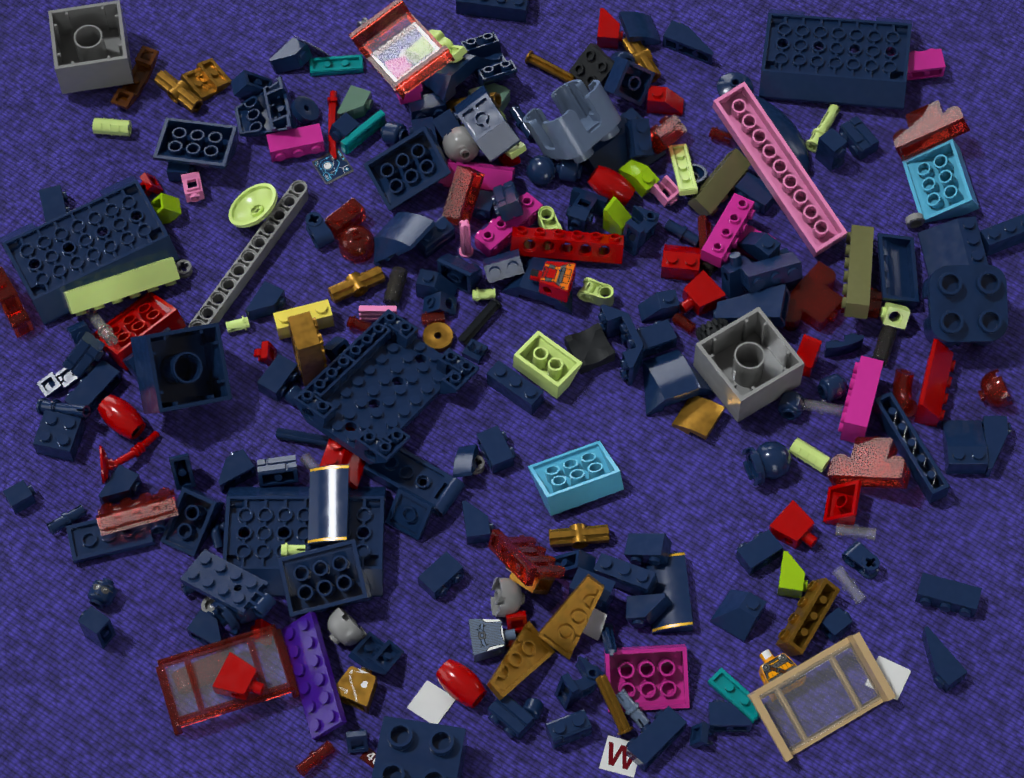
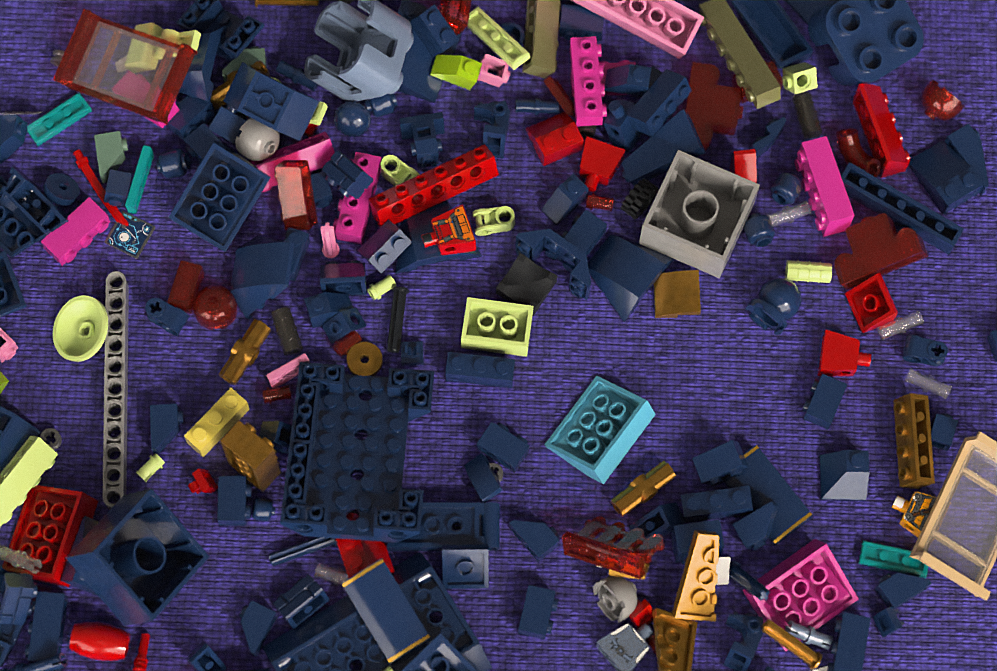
camera: 35 degrees left, 10 degrees up
(611, 183) = (436, 96): red piece -> none
(615, 217) = (465, 130): lime slope -> none
(791, 578) = (870, 409): lime slope -> none

